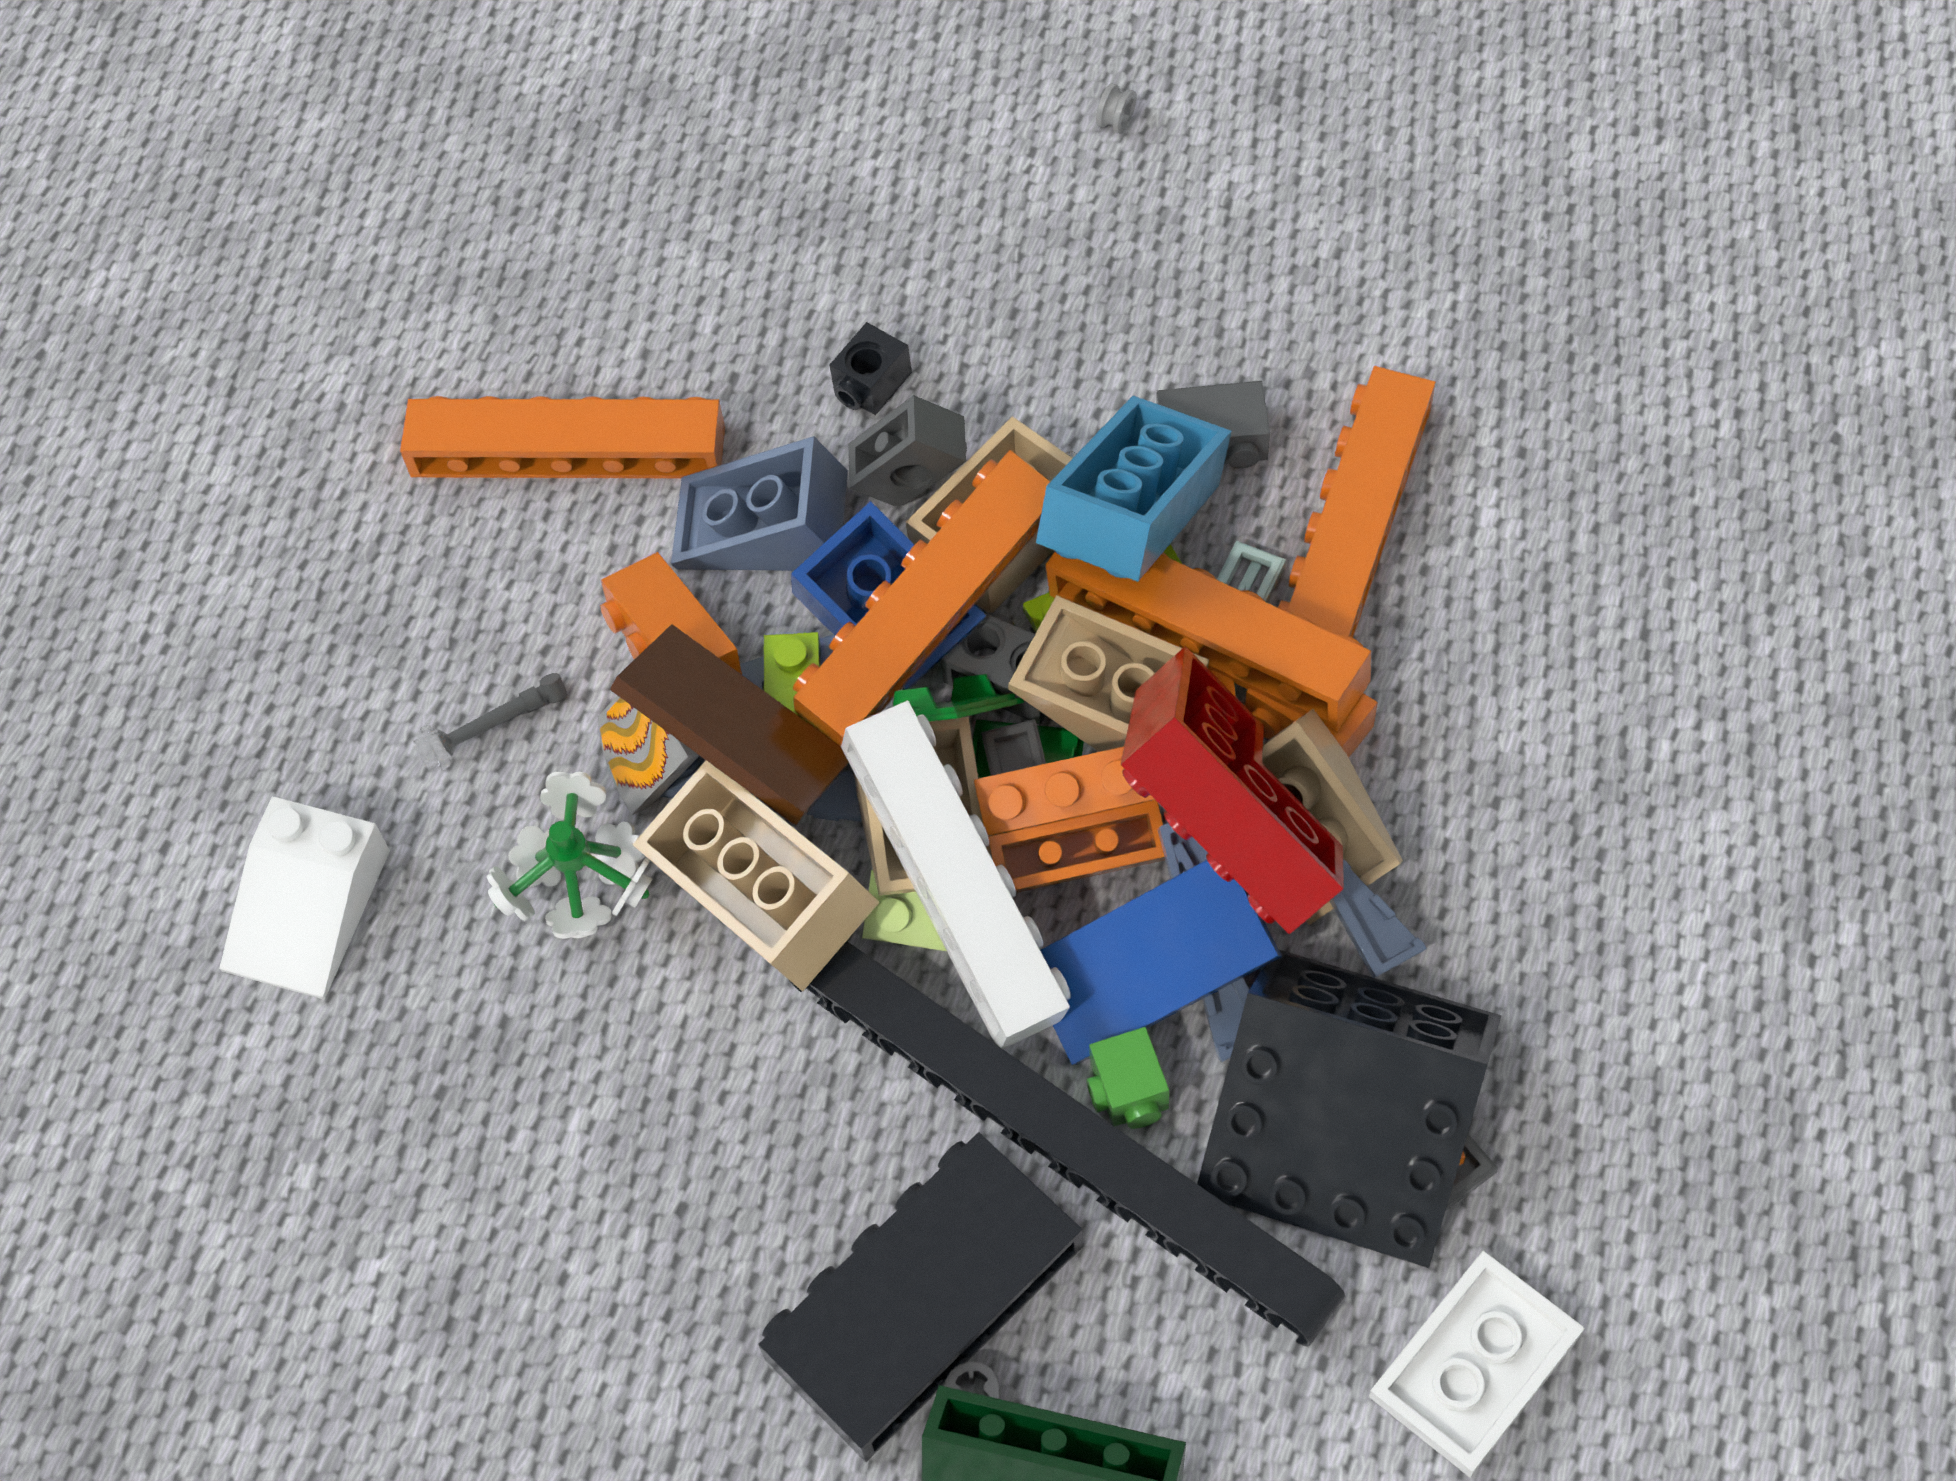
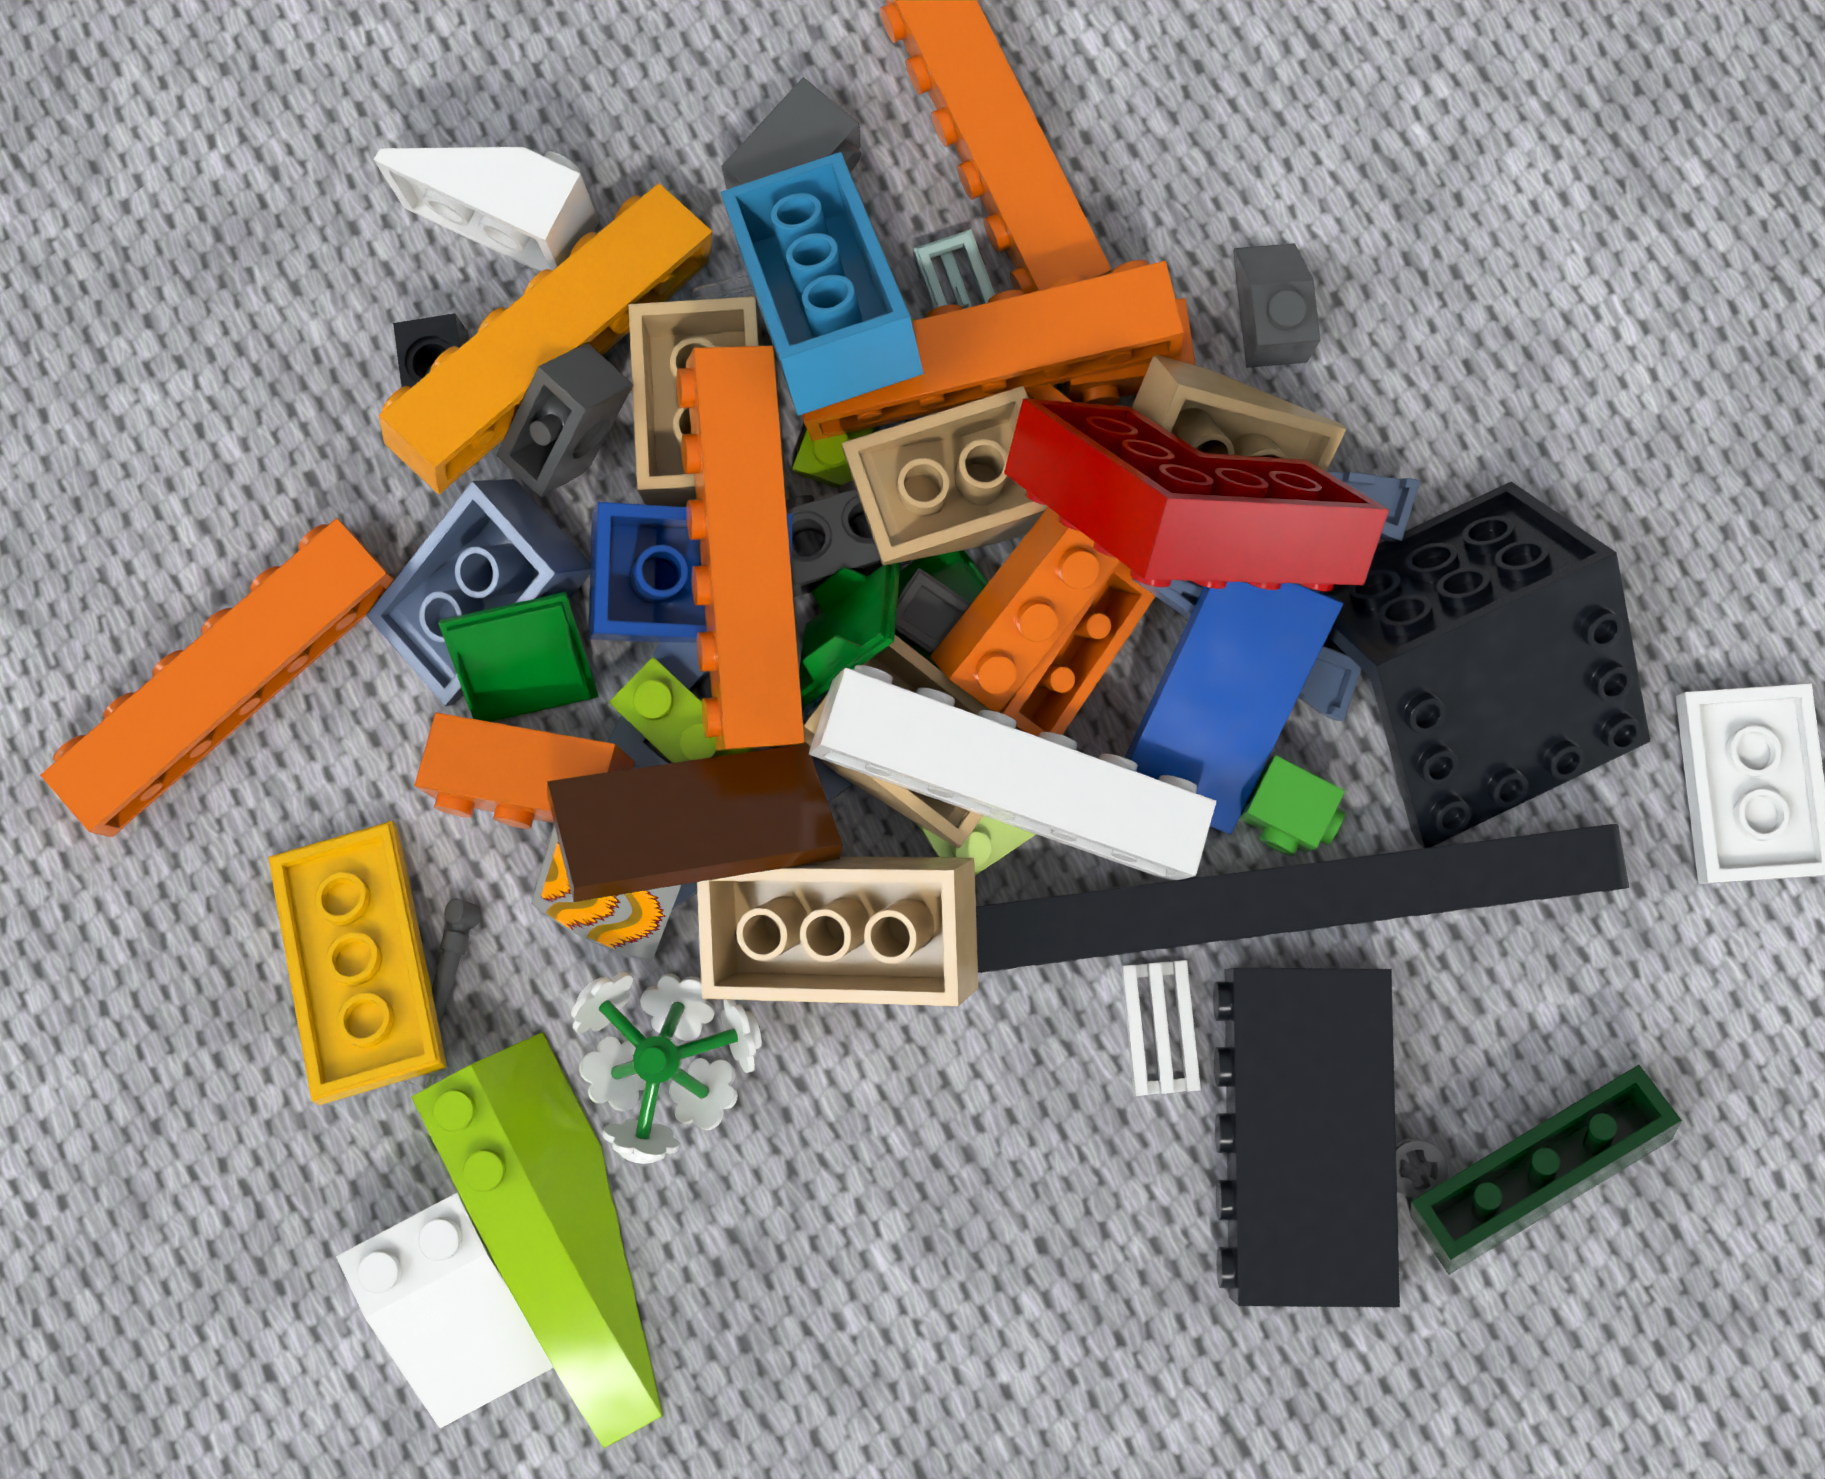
camera: 50 degrees left, 20 degrees up
(405, 905) = (549, 1223): none -> lime wedge
(463, 656) = (356, 963): none -> yellow tile
(739, 566) = (519, 658): none -> green piece
(858, 388) = (476, 389): none -> light orange brick
(930, 1105) = (1155, 973): none -> white tile
(1003, 306) = (497, 197): none -> white slope
(1440, 766) = (1276, 305): none -> dark grey slope

